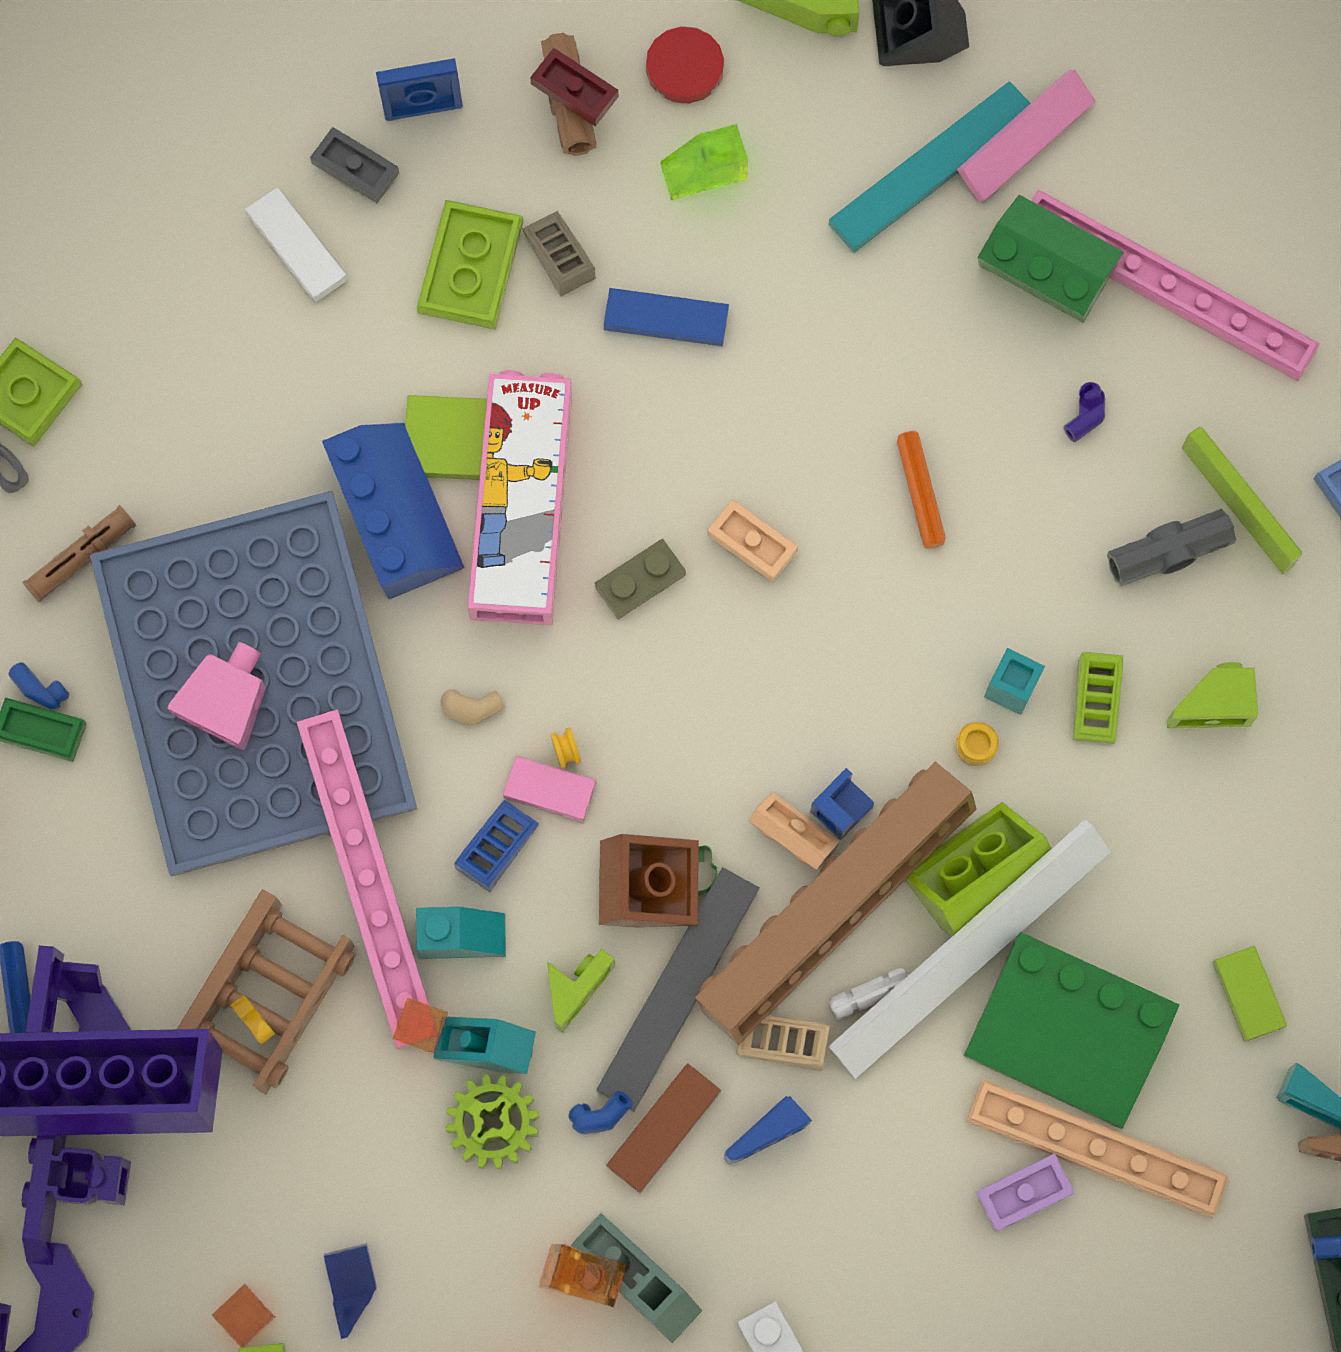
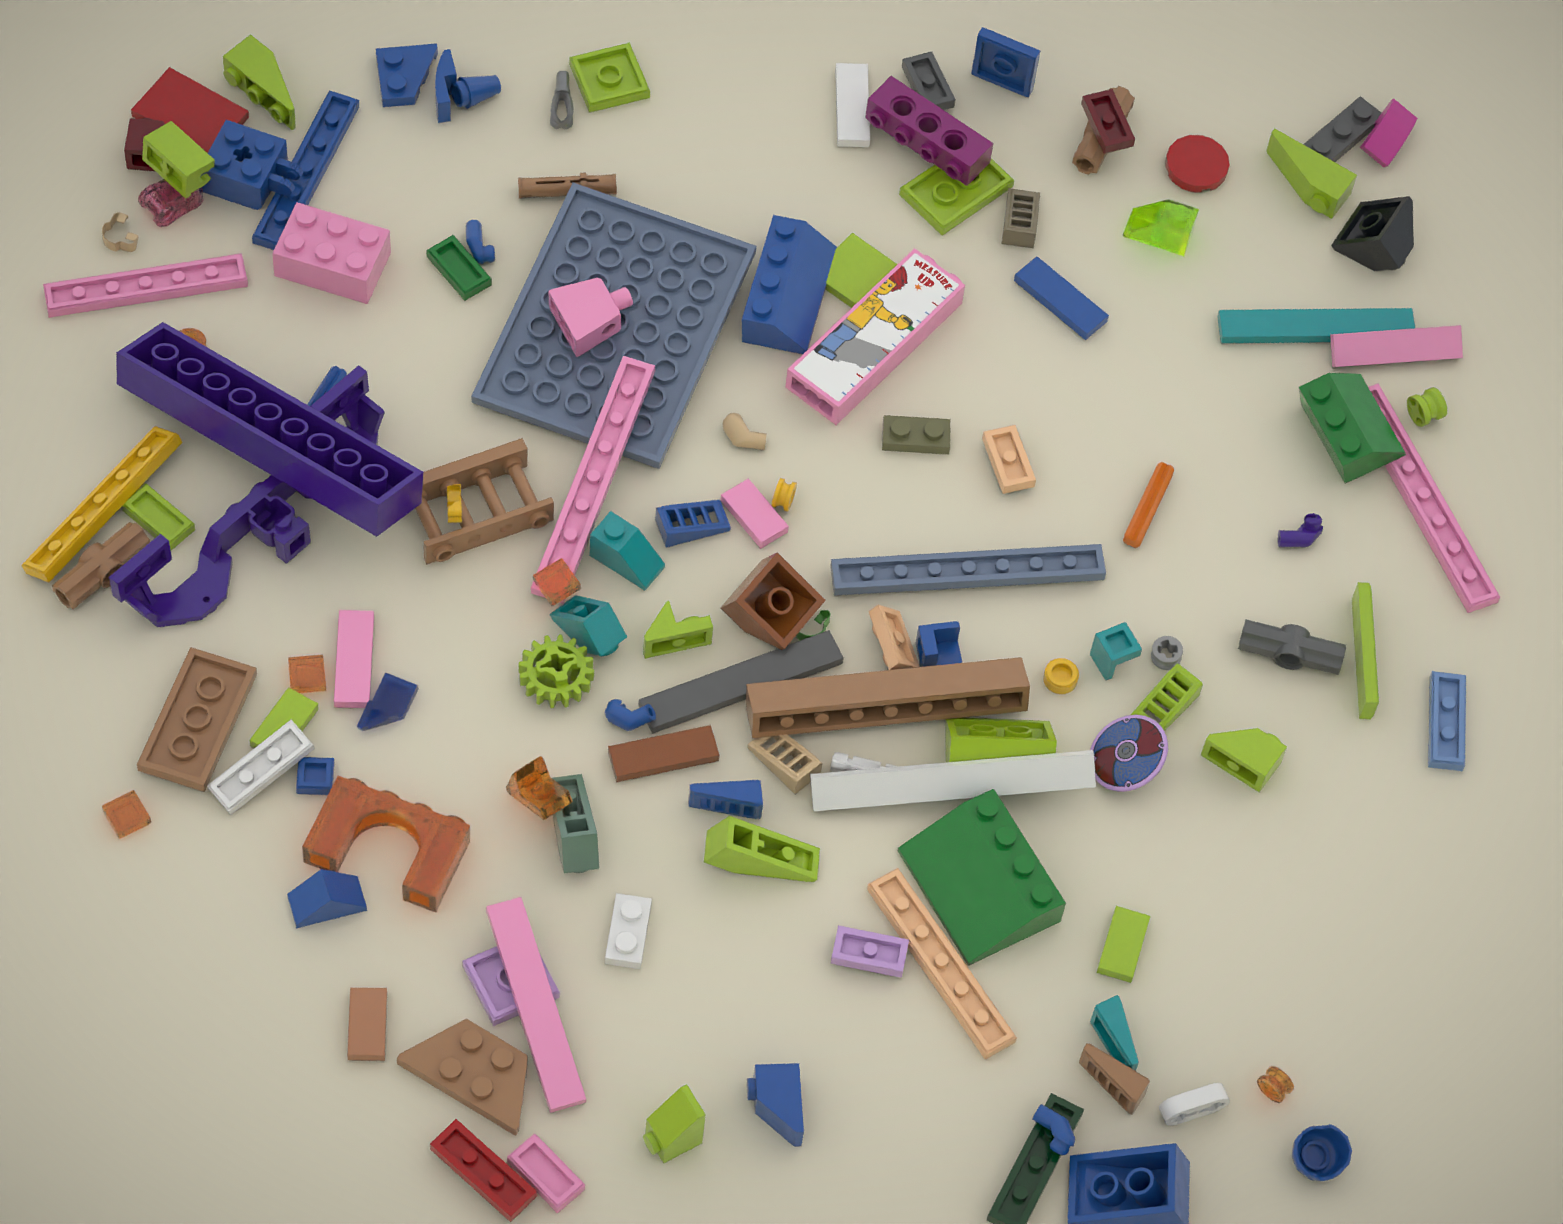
camera: 30 degrees right, 15 degrees down
(277, 1261) = (354, 659): none -> bright pink tile
(383, 212) = (929, 131): none -> magenta brick
(803, 696) = (967, 569): none -> sand blue plate
(843, 1168) = (759, 852): none -> lime slope
(1056, 629) = (1173, 645): none -> light grey bush
(1104, 183) = (1427, 407): none -> lime wheel
(1108, 784) = (1129, 752): none -> shield

